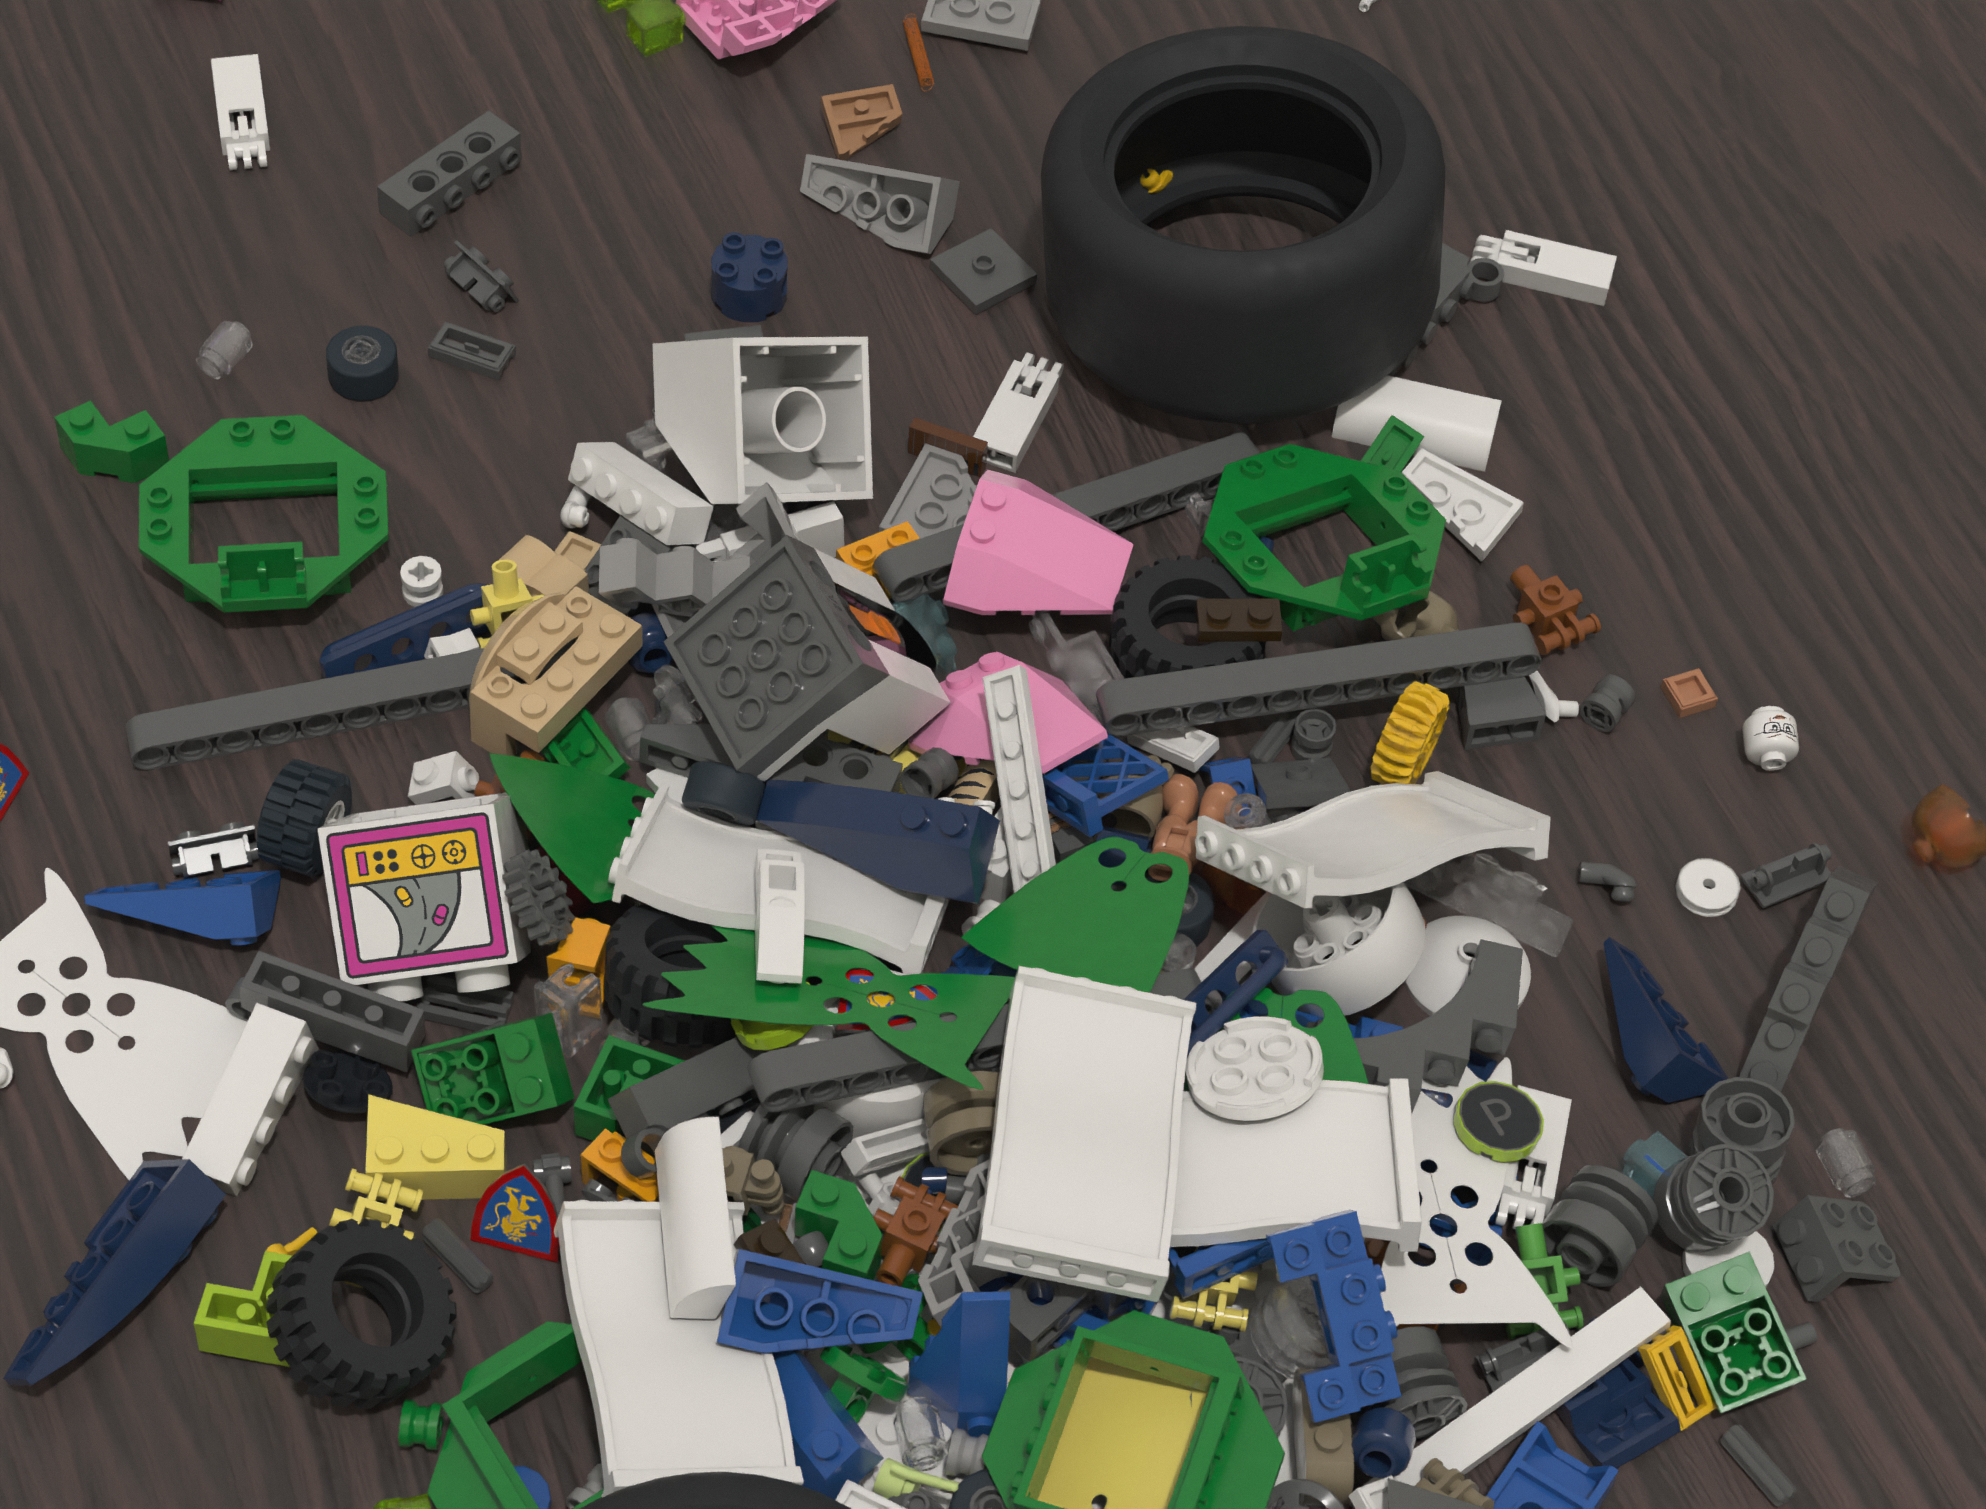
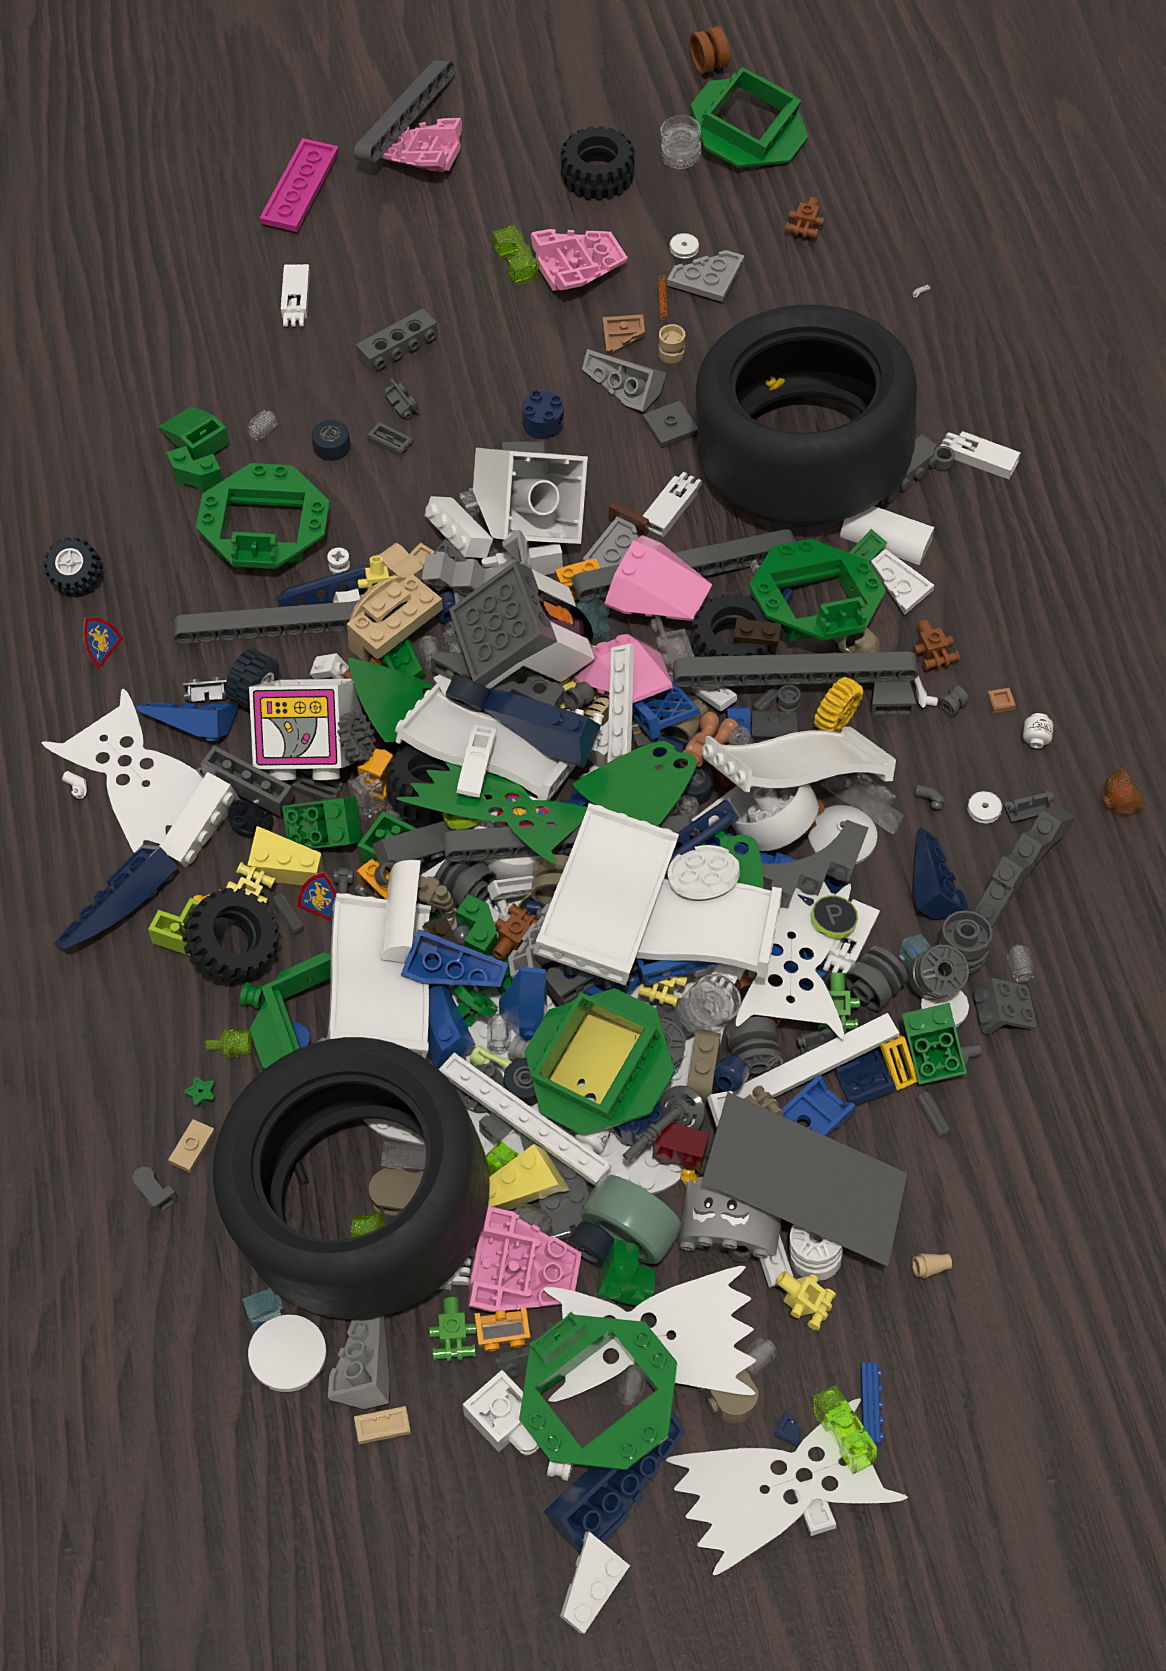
camera: 15 degrees right, 5 degrees up
(104, 368) = (197, 431): none -> green slope
(574, 511) = (424, 532): white arm -> none
(956, 130) = (671, 343): none -> tan wheel
(1349, 1310) = (723, 1004): blue bracket -> none

